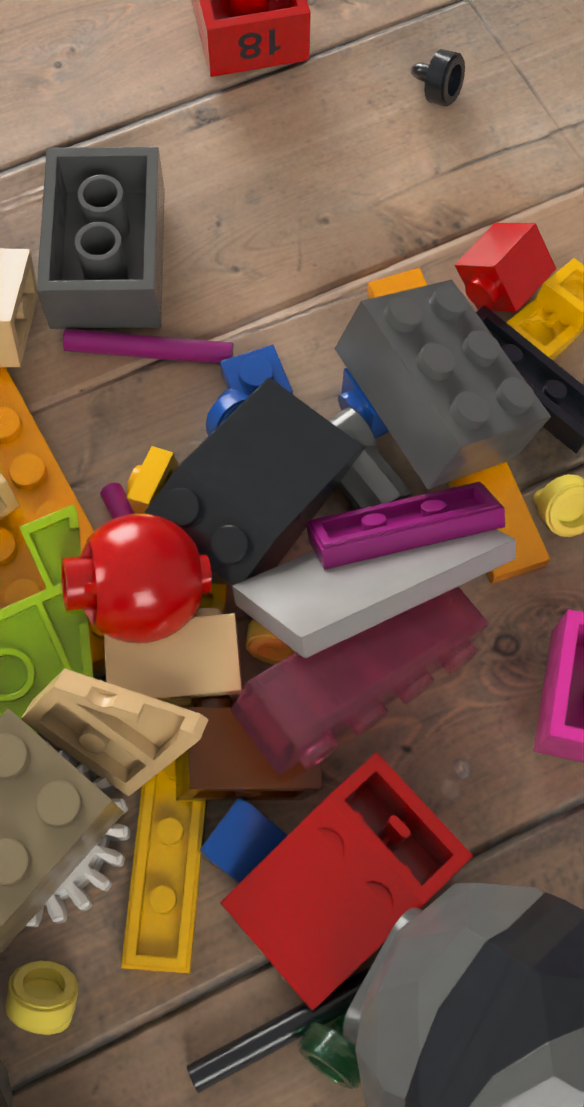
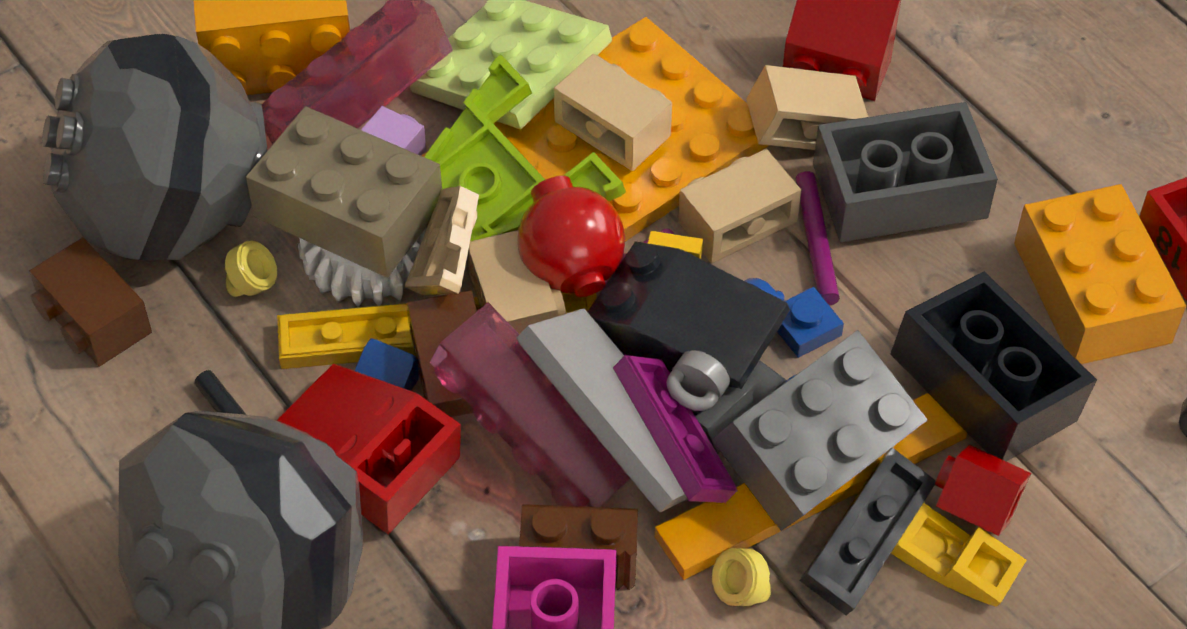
camera: 80 degrees right, 15 degrees down
(95, 406) = (739, 205): none -> tan brick
(269, 111) = (1099, 274): none -> light orange brick
(351, 481) = (697, 381): none -> light grey tile
(373, 219) = (992, 367): none -> black brick
(519, 655) = (585, 529): none -> reddish brown brick

